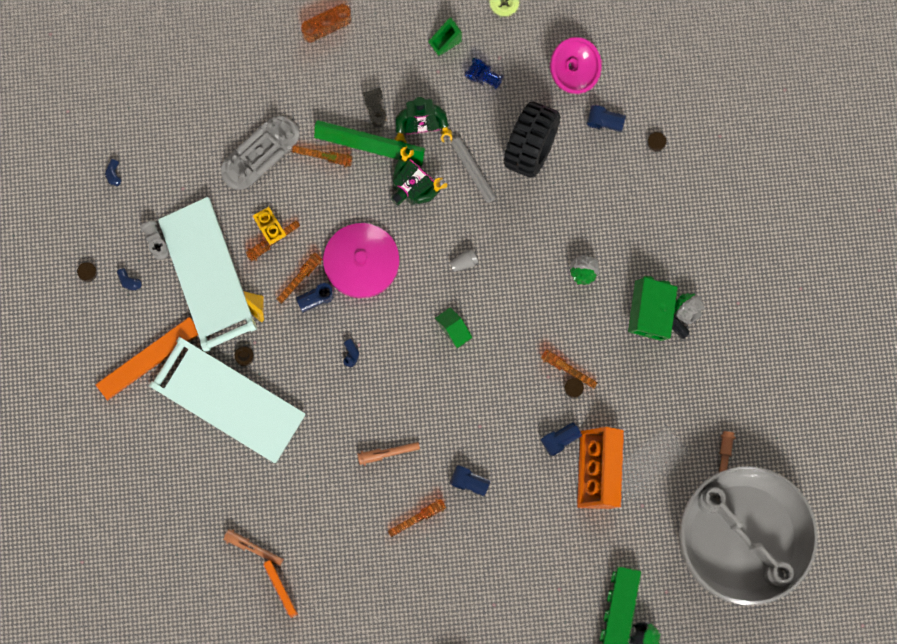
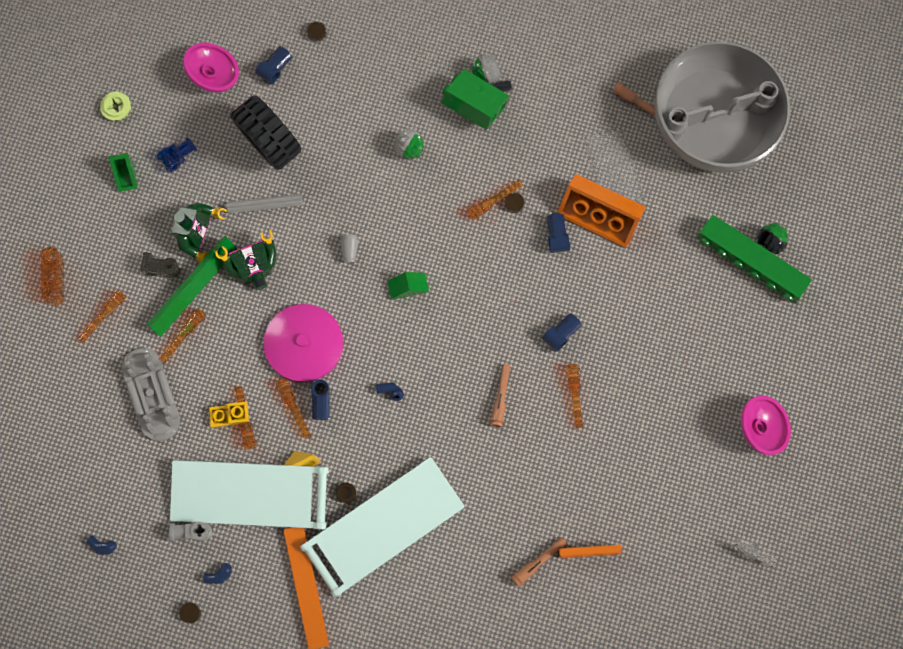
camera: 65 degrees left, 0 degrees up
(319, 82) = (108, 308): none -> clear orange pin

